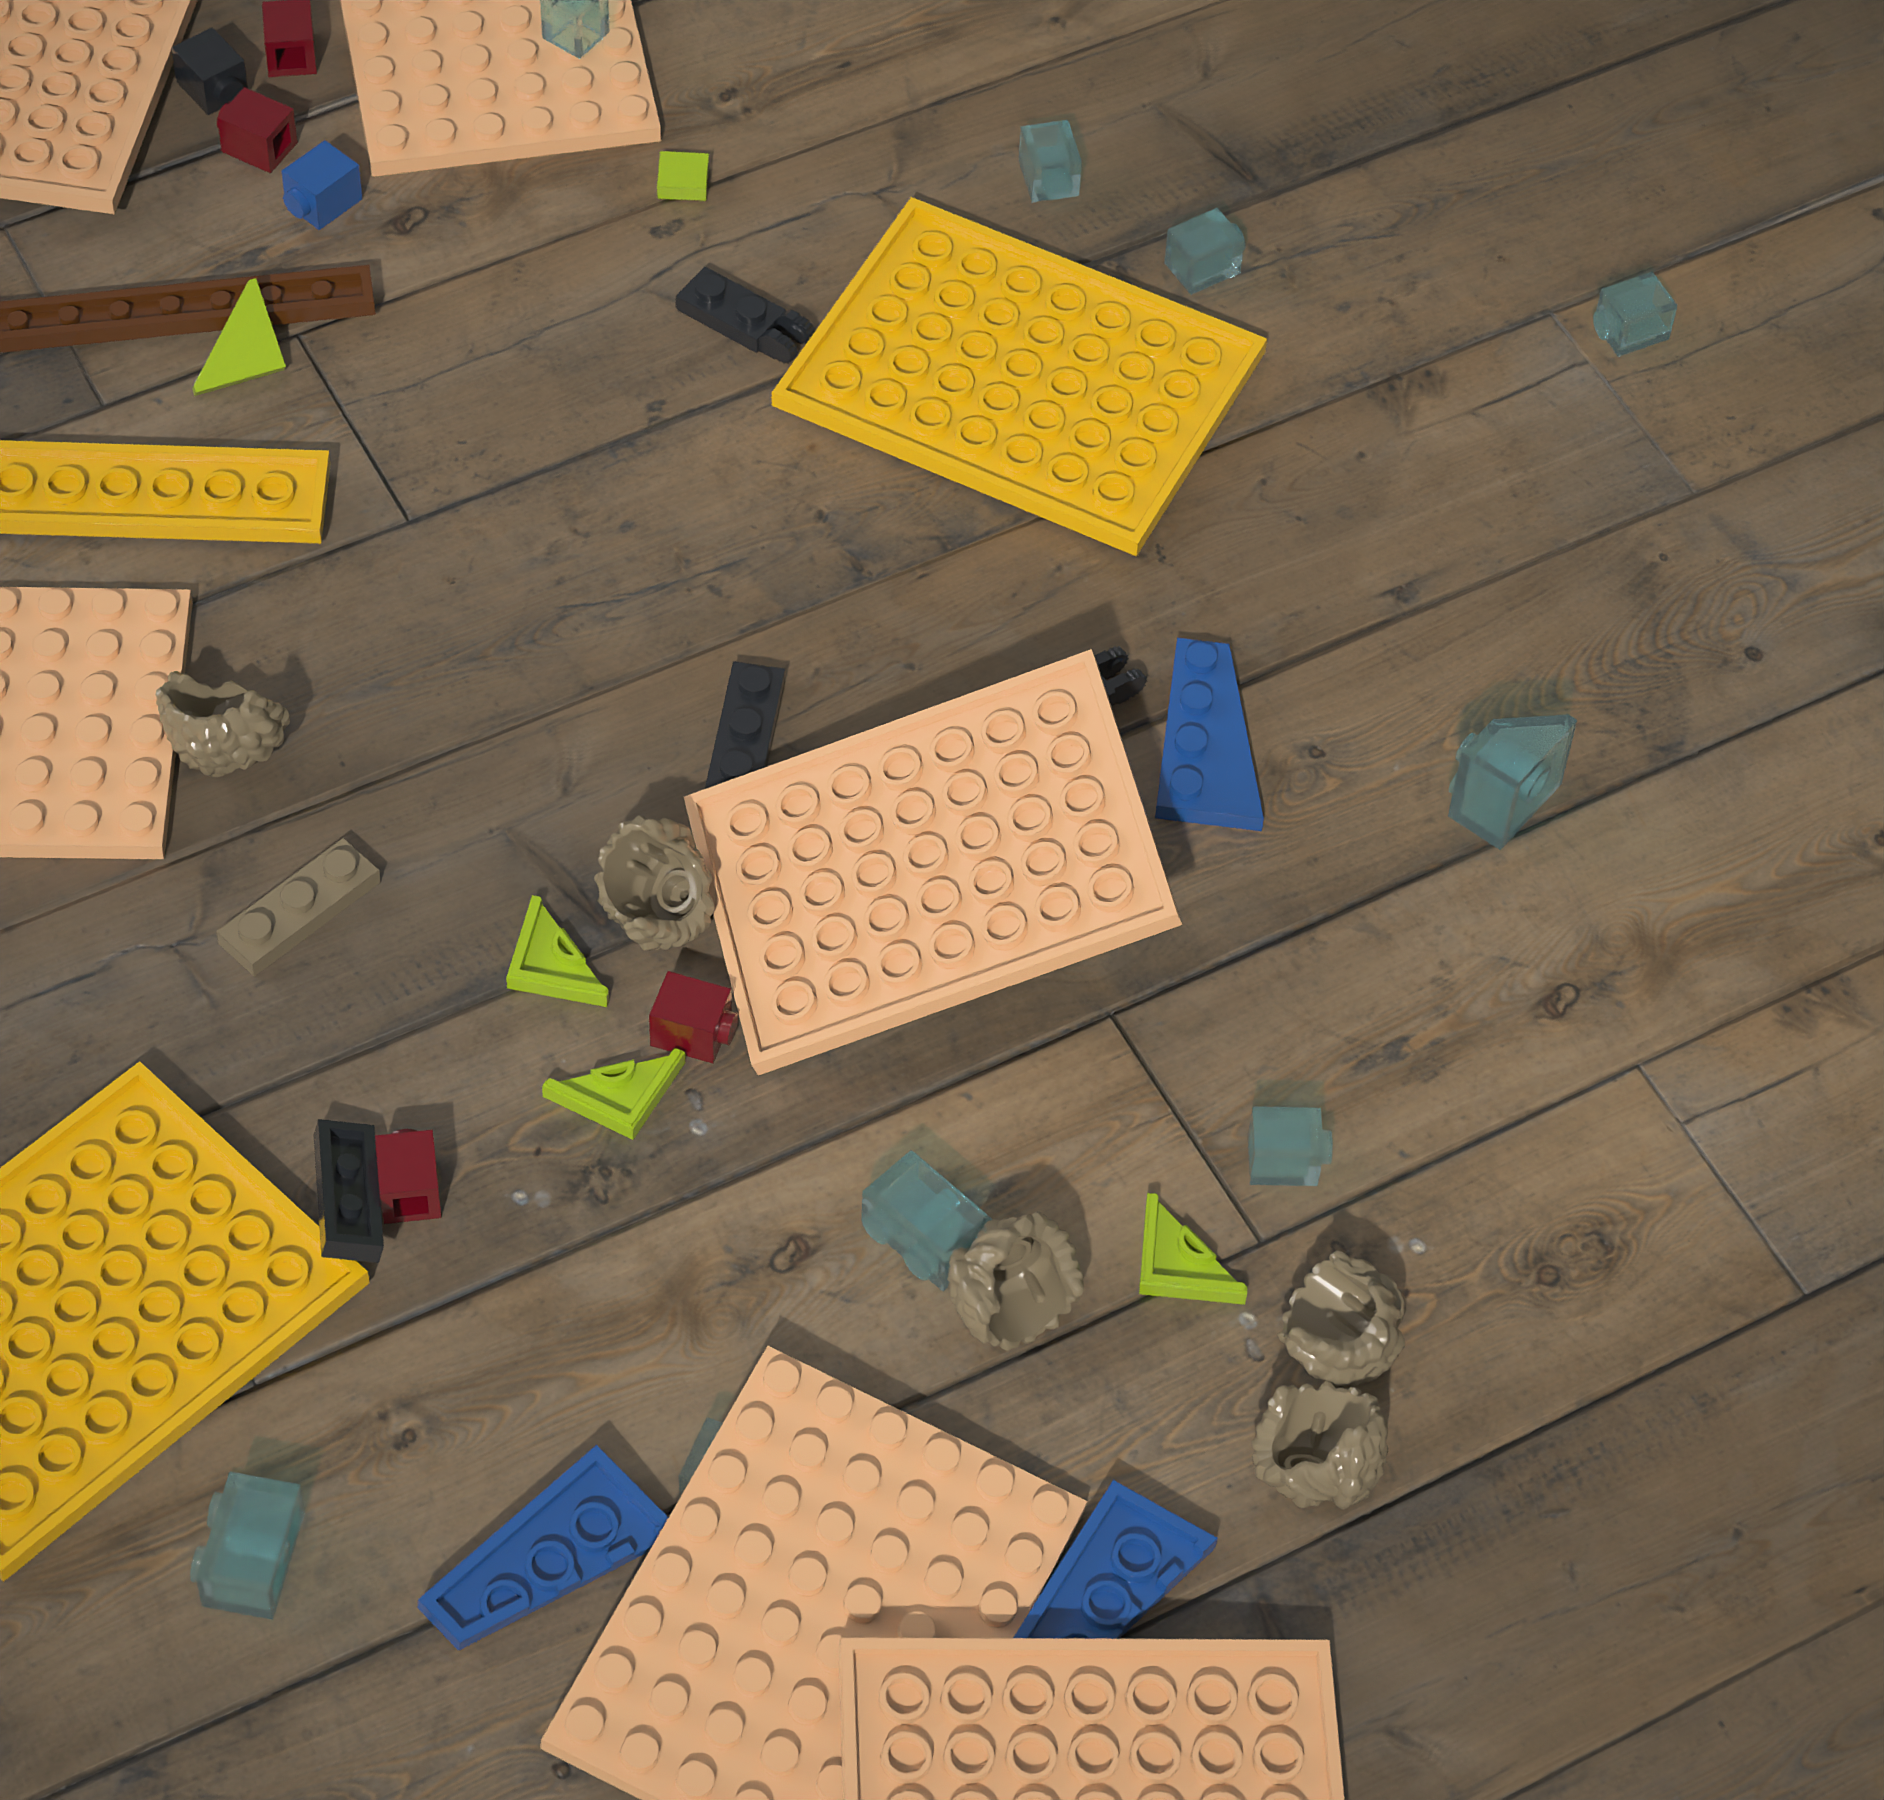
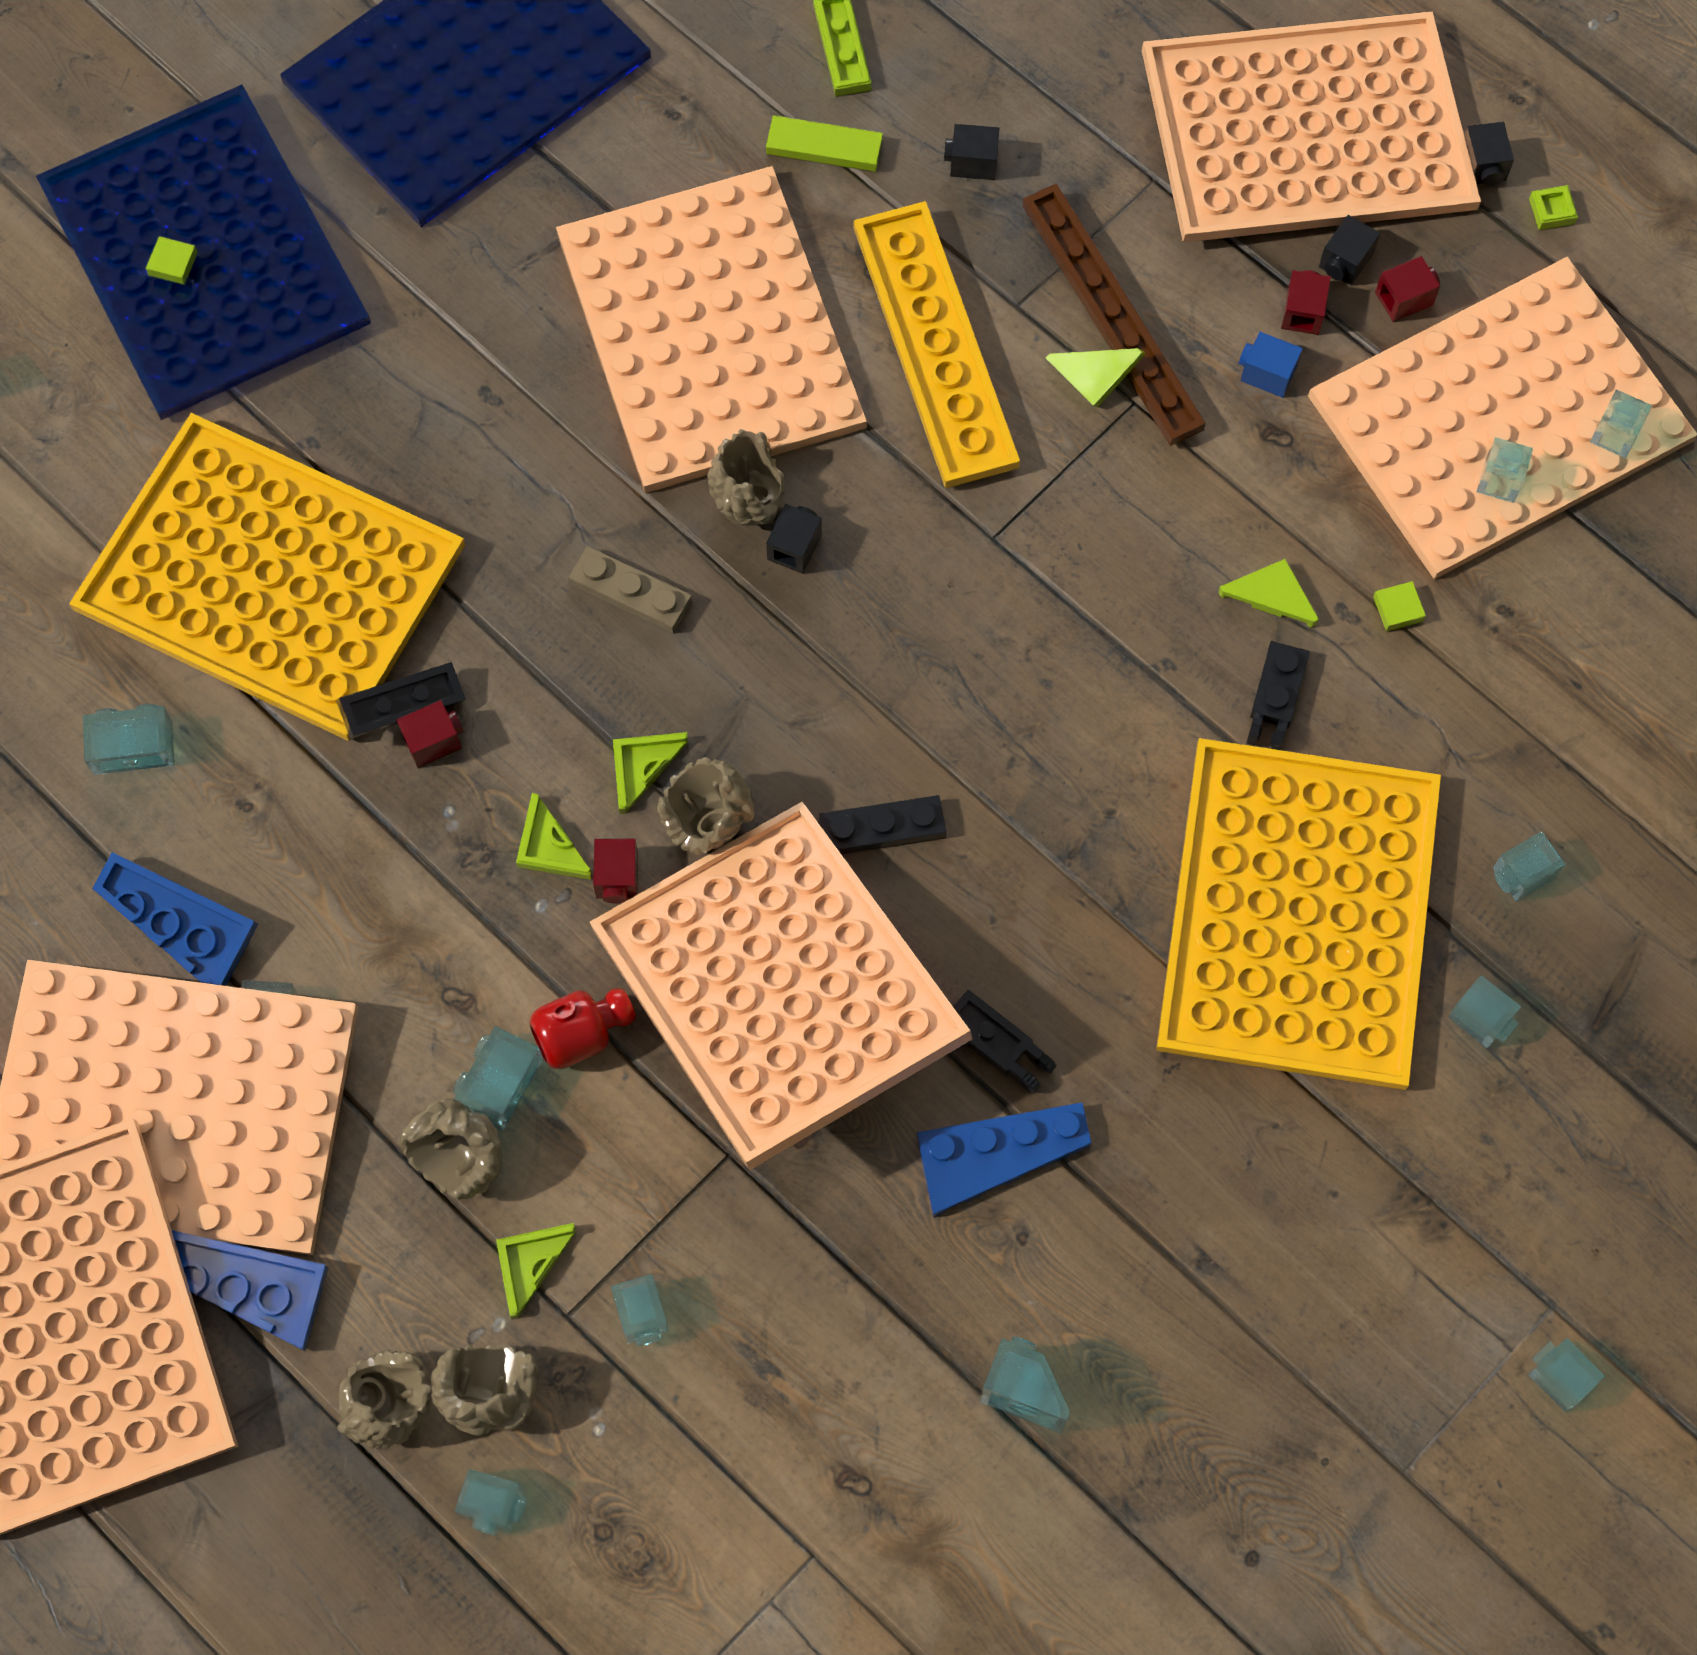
camera: 75 degrees right, 15 degrees up
(320, 705) = (794, 538): none -> black brick
(614, 276) = (1272, 591): none -> lime tile
(892, 1106) = (578, 1026): none -> red piece
(1483, 1373) = (490, 1502): none -> clear light blue brick

